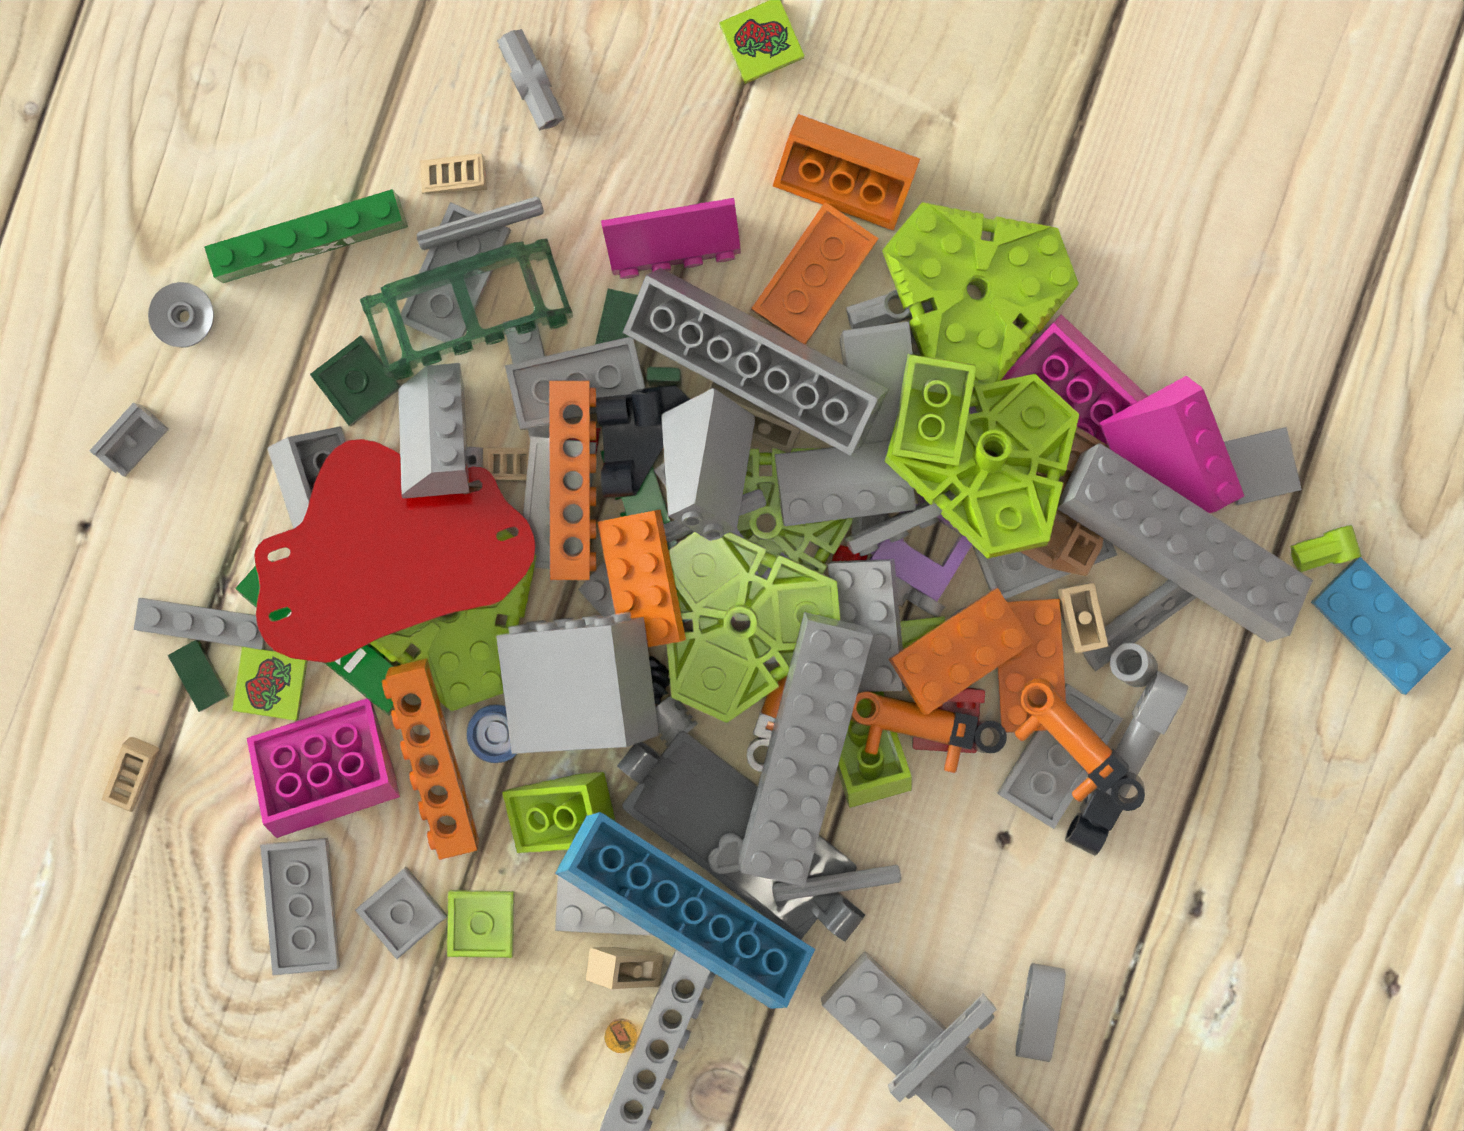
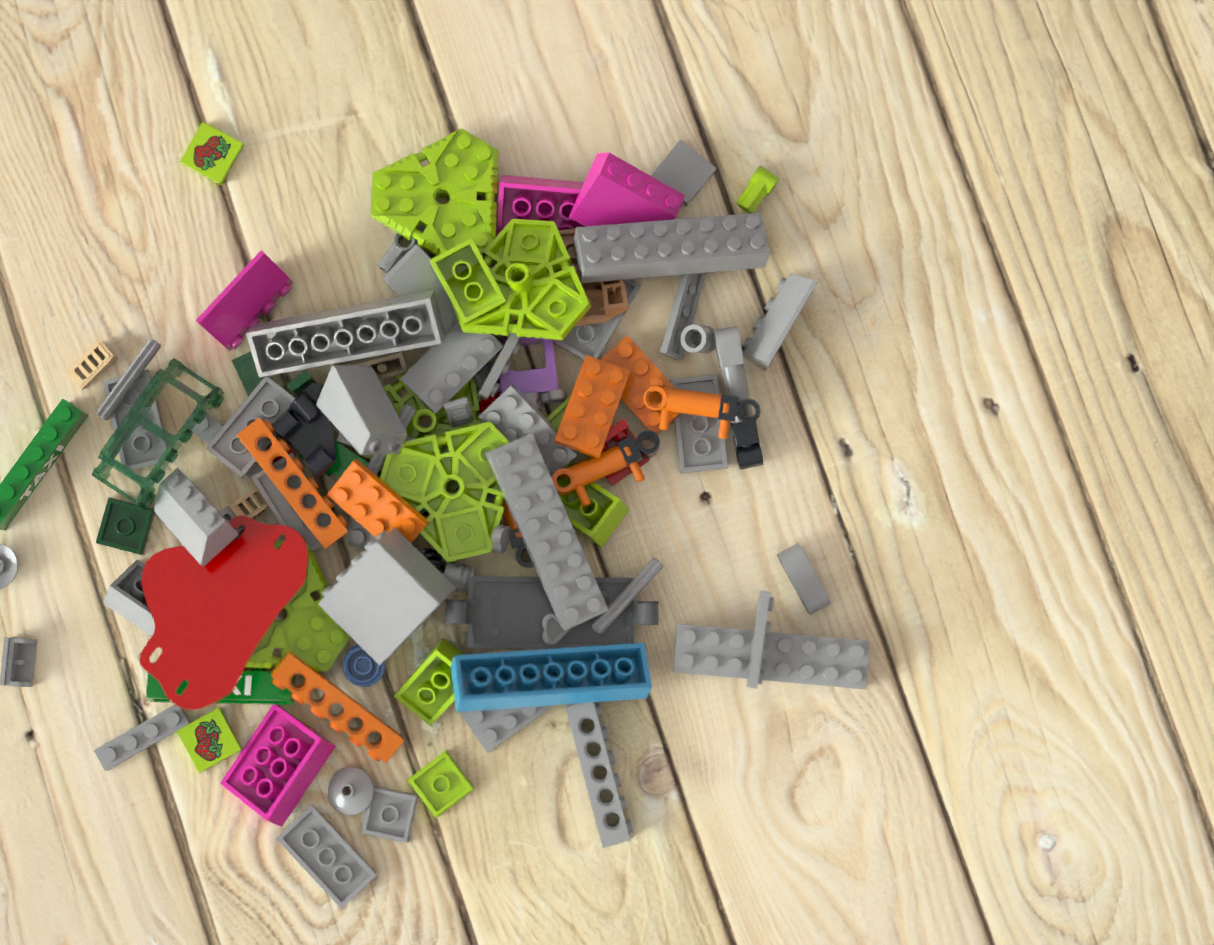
camera: 35 degrees left, 5 degrees down
(136, 754) = (172, 846): tan slope -> none
(198, 675) = (163, 768): dark green tile -> none
(393, 860) = (361, 790): none -> light grey dish
(530, 79) = (95, 276): light grey piece -> none
(620, 1035) = (573, 784): clear yellow tile -> none
(624, 968) = (544, 742): tan slope -> none
(749, 716) = (501, 537): none -> light grey tile
(810, 543) = (458, 412): none -> light grey slope
(814, 273) = (344, 260): orange plate -> none
(845, 172) = (317, 190): orange slope -> none
(1083, 617) = (647, 333): tan slope -> none
(1238, 713) = (778, 320): none -> light grey slope
(1381, 625) = (822, 209): dark azure plate -> none

